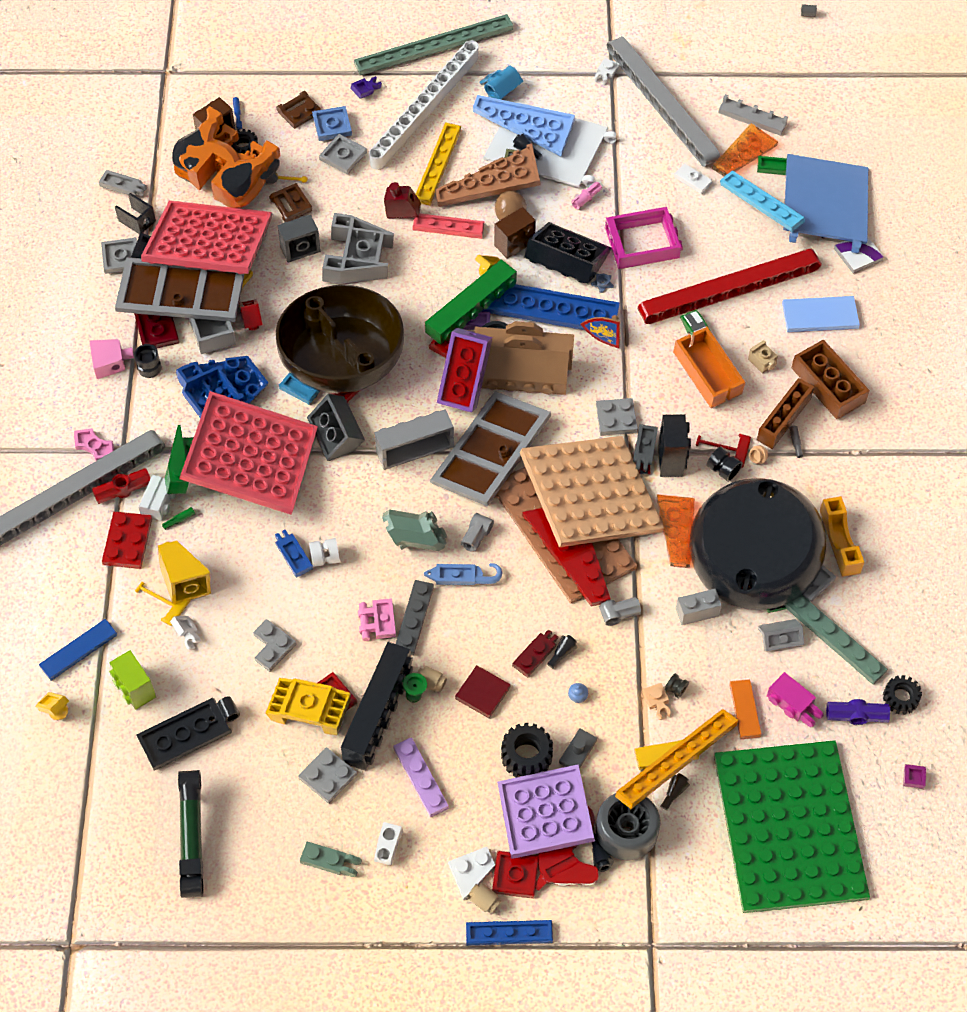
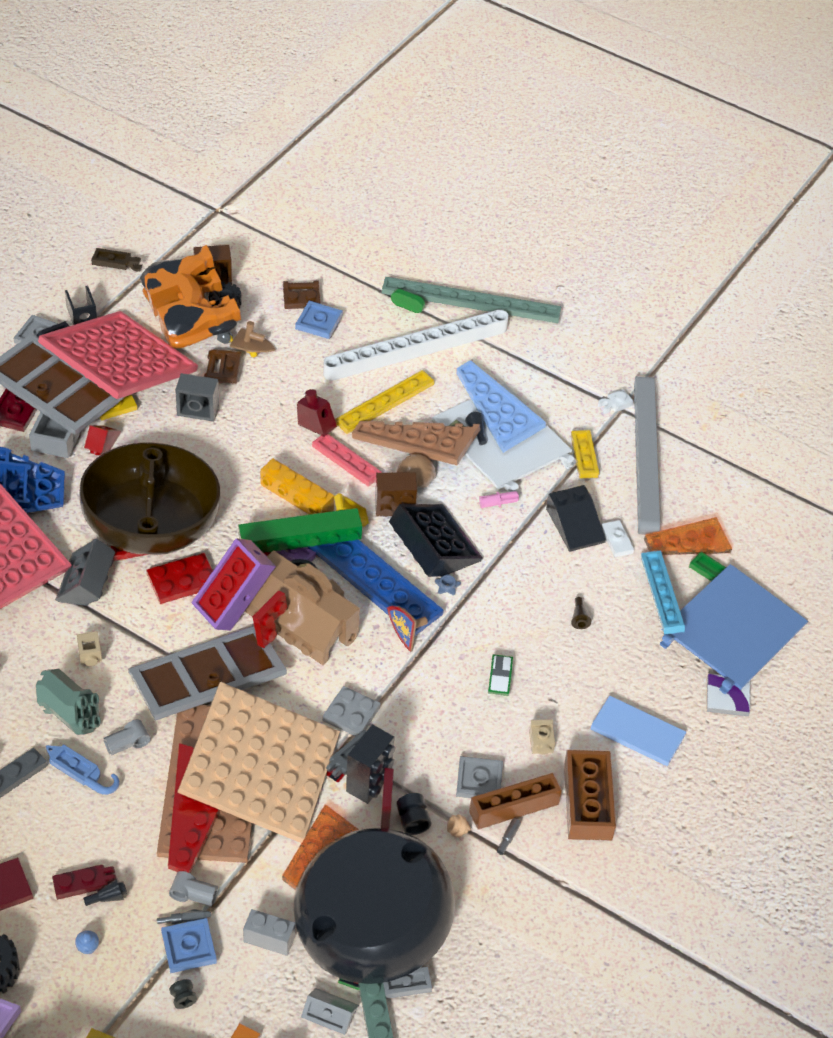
camera: 30 degrees right, 10 degrees down
(122, 183) = (94, 277): light grey hinge -> none
(126, 158) = (115, 259): none -> dark brown plate
(237, 112) = (246, 270): blue piece -> none
(295, 170) = (251, 341): none -> medium nougat shield
(298, 390) = (84, 529): dark azure tile -> none
(343, 154) = (305, 349): light grey plate -> none
(361, 251) = (241, 438): light grey wedge -> none
(365, 88) = (375, 305): dark purple plate -> none
(388, 71) = (408, 301): none -> green tile
(390, 482) = (89, 652): none -> tan brick
(407, 388) = (179, 578): none -> red plate
(414, 439) = (140, 622): light grey piece -> none
(436, 270) = (295, 488): none -> light orange brick
(501, 82) = (502, 361): dark azure piece -> none
(512, 380) = (265, 618): none -> red plate
(578, 749) = (39, 995): dark grey tile -> none
(619, 124) = (584, 454): none -> yellow plate
(632, 630) = (187, 916): none -> dark grey hand
(638, 219) = (524, 545): dark pink window -> none
(650, 650) = (188, 945): none -> medium blue plate
(653, 179) = (575, 518): none -> black slope
(657, 698) = (155, 995): light nougat plate -> none
(701, 465) = (387, 798): none -> dark red tile
(709, 367) = (475, 715): orange piece -> none
(717, 253) = (580, 617): none -> dark brown cone
(729, 286) = (567, 654): red beam -> none
(741, 450) = (444, 813): red piece -> none
(743, 412) = (478, 776): none -> light grey tile
(753, 115) = (727, 513): light grey hinge -> none
(835, 521) = (464, 966): light orange arch -> none

